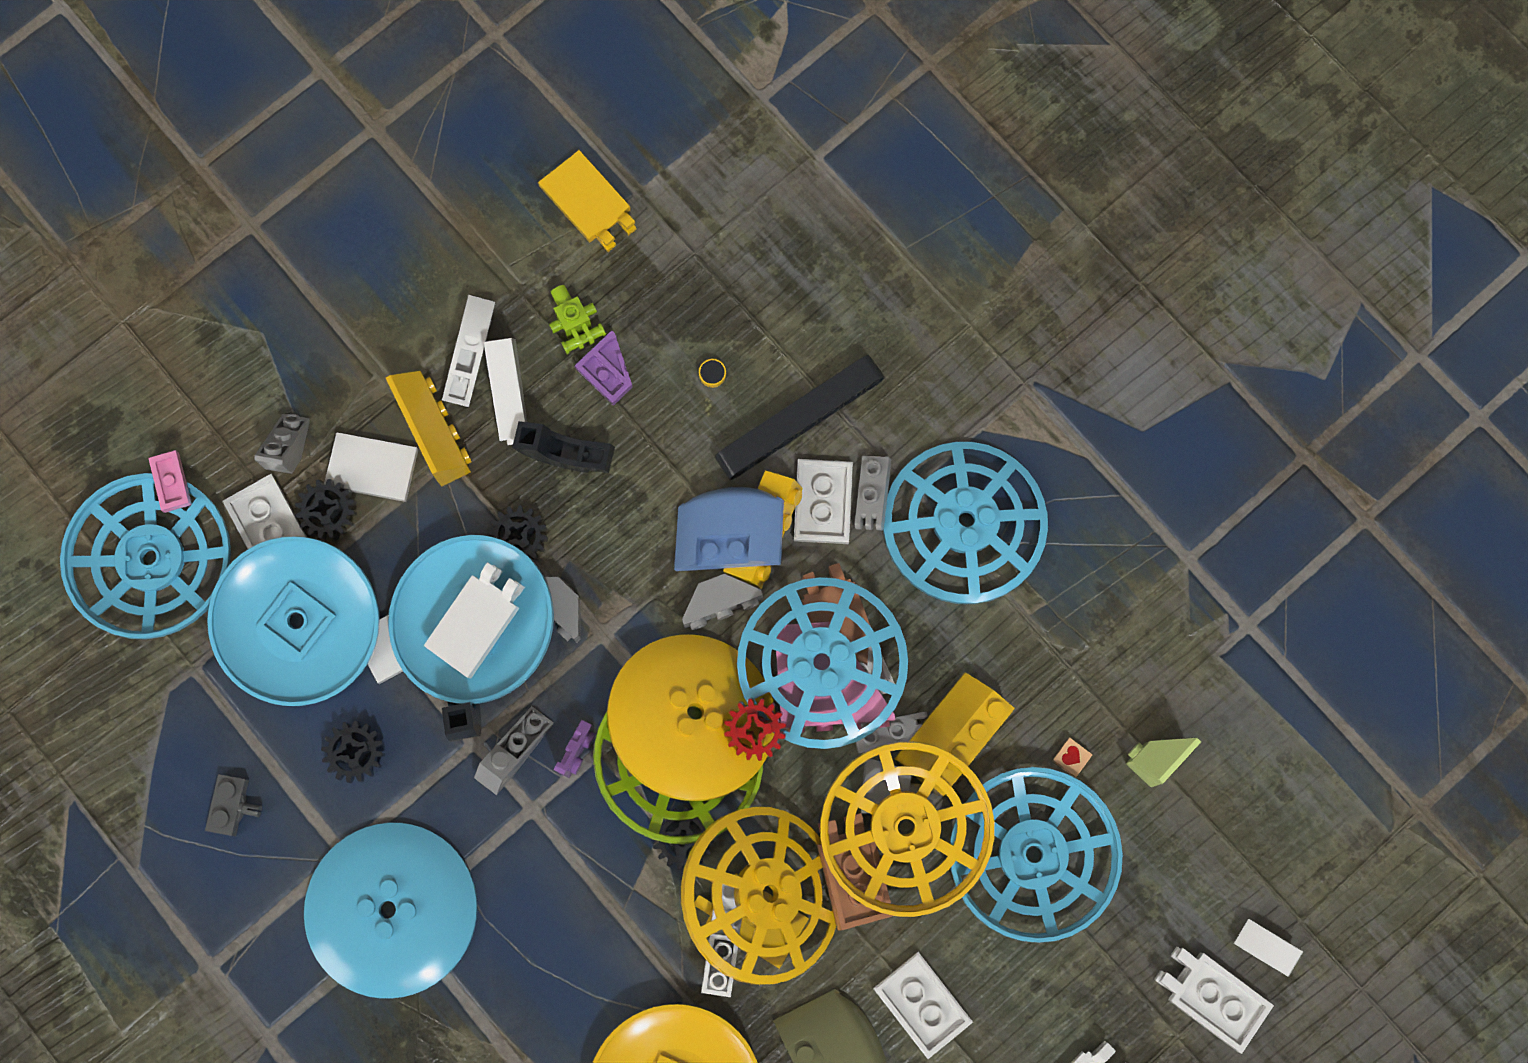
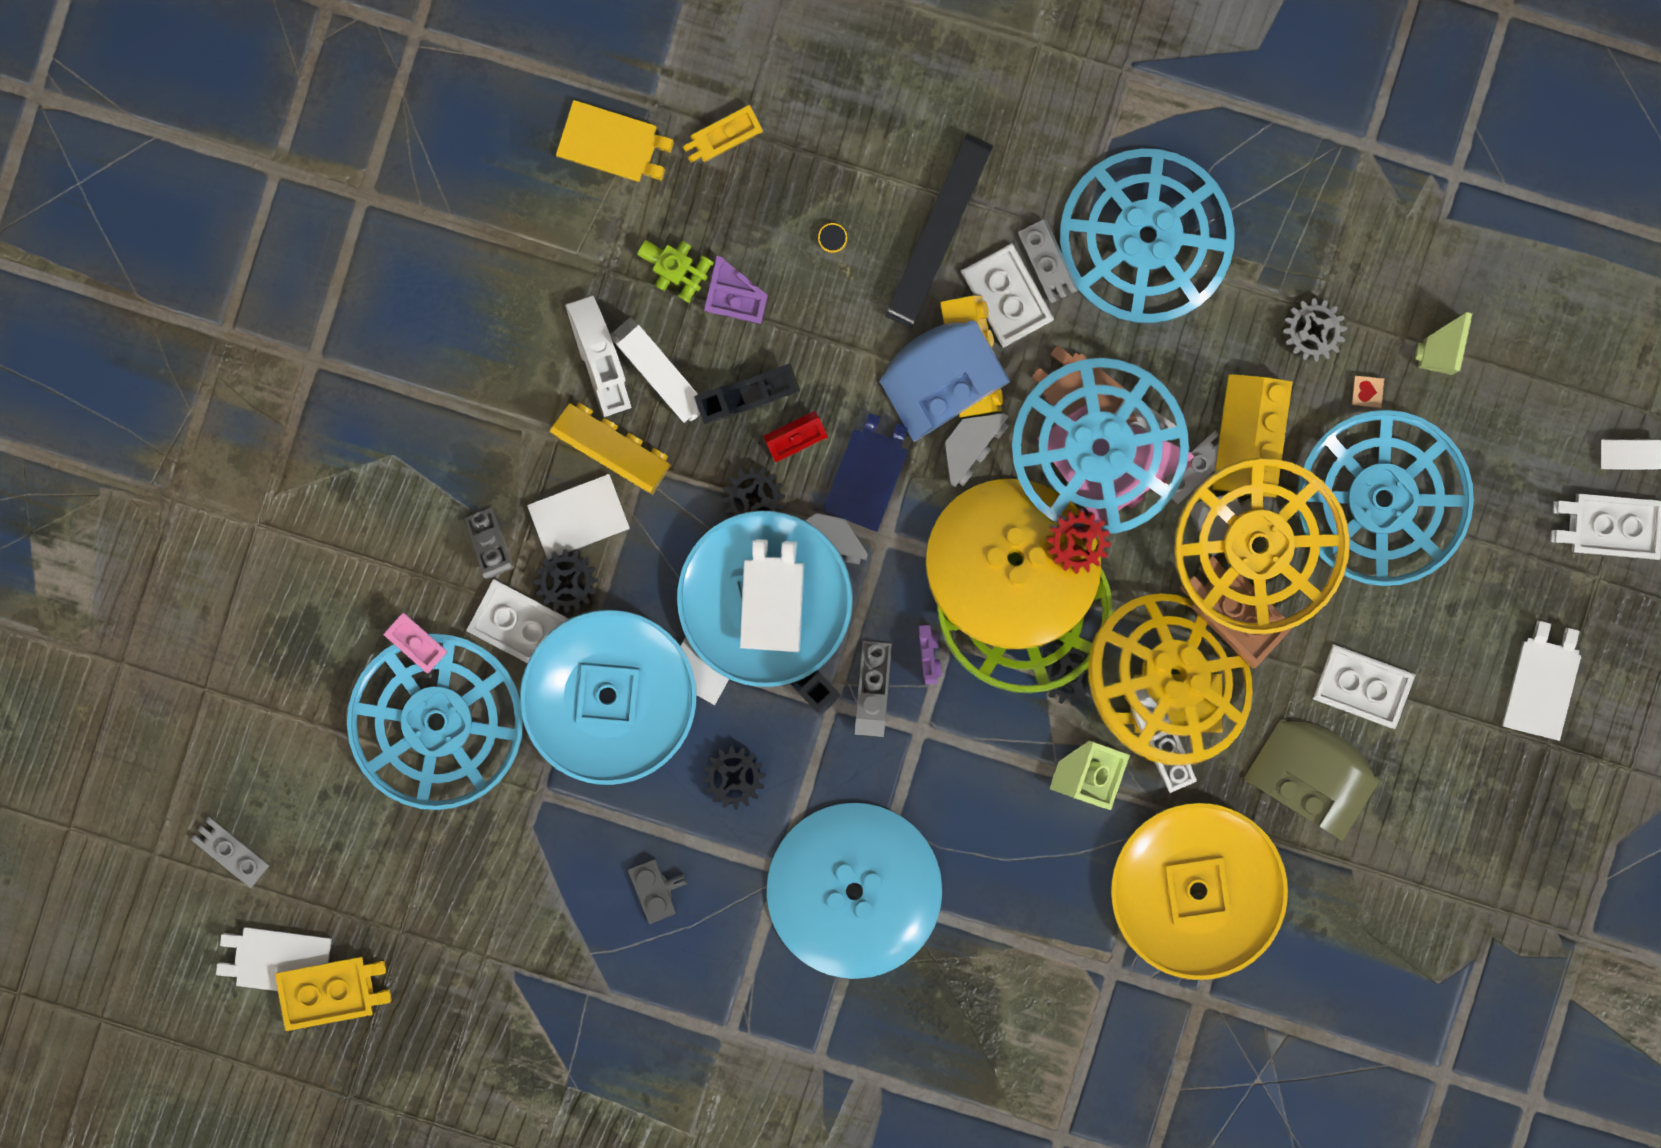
camera: 30 degrees left, 10 degrees up
(582, 507) = (795, 436): none -> red plate
(621, 574) = (867, 475): none -> clear blue tile
(646, 935) = (1091, 774): none -> yellowish green slope
(677, 244) = (724, 135): none -> yellow hinge
(1045, 678) = (1320, 343): none -> light grey gear

